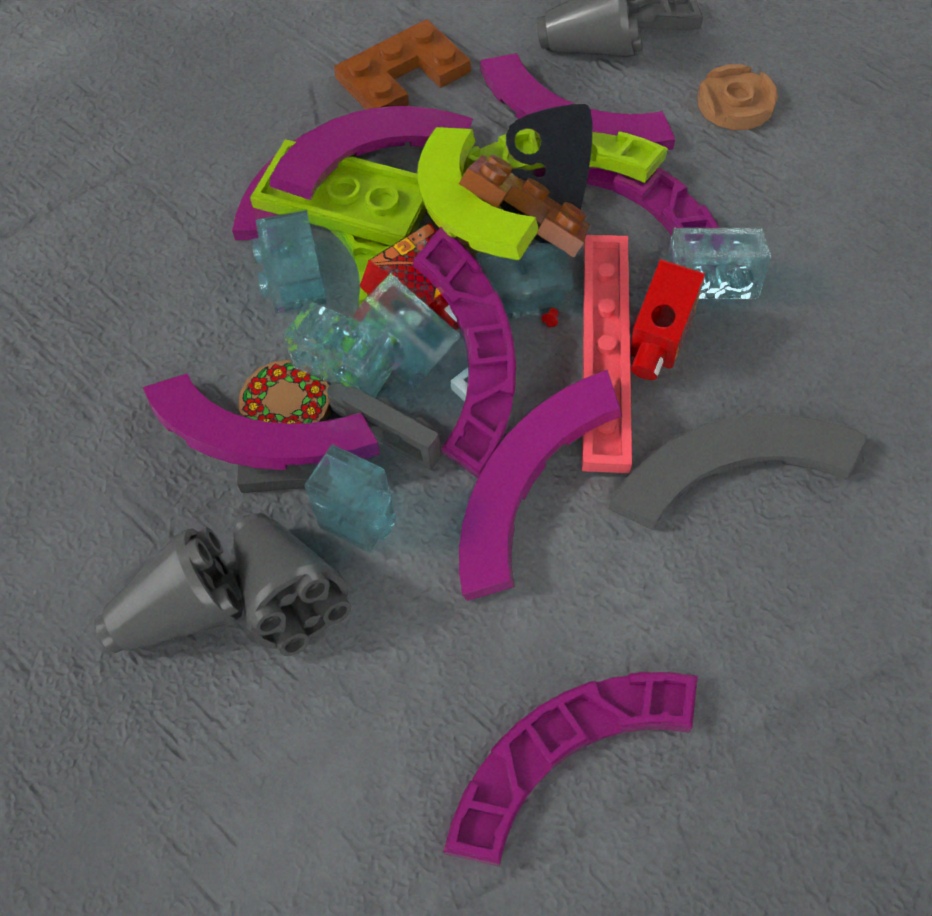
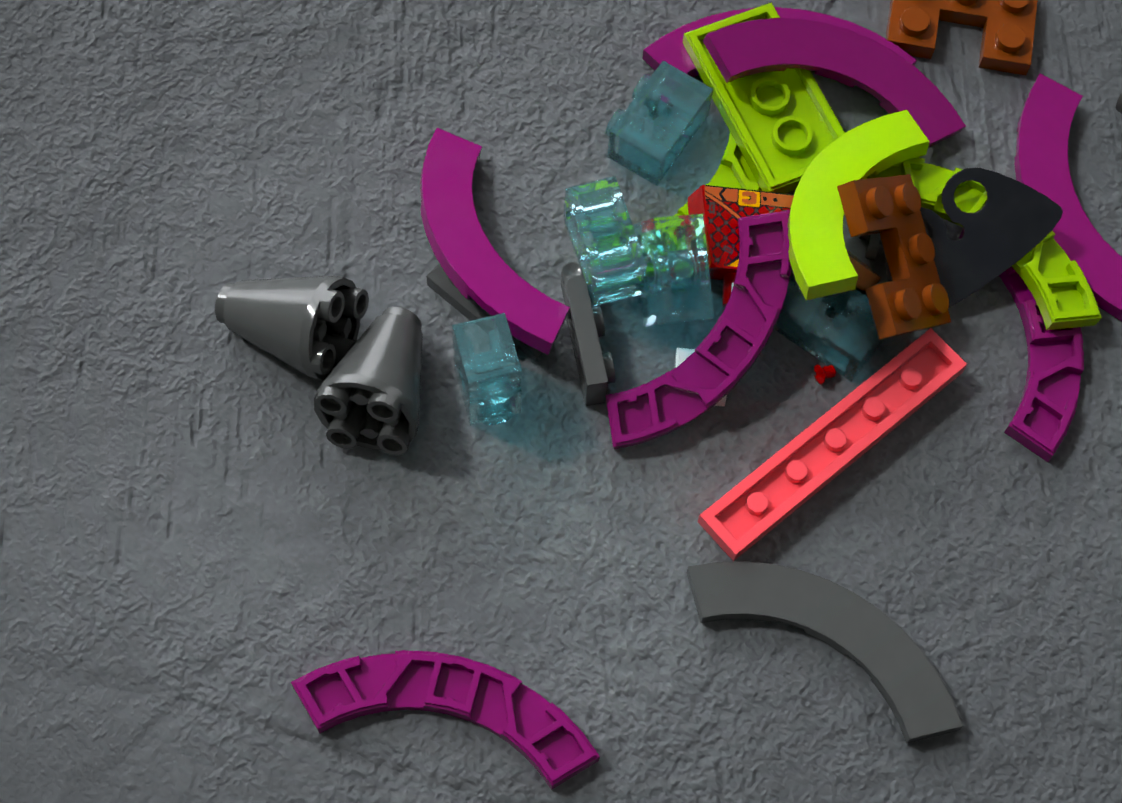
camera: 40 degrees right, 5 degrees up
(284, 395) = (532, 238): tile -> none
(511, 472) = (642, 468): magenta tile -> none
(664, 318) = (918, 464): red torso -> none
(730, 258) = (1009, 460): clear light blue brick -> none

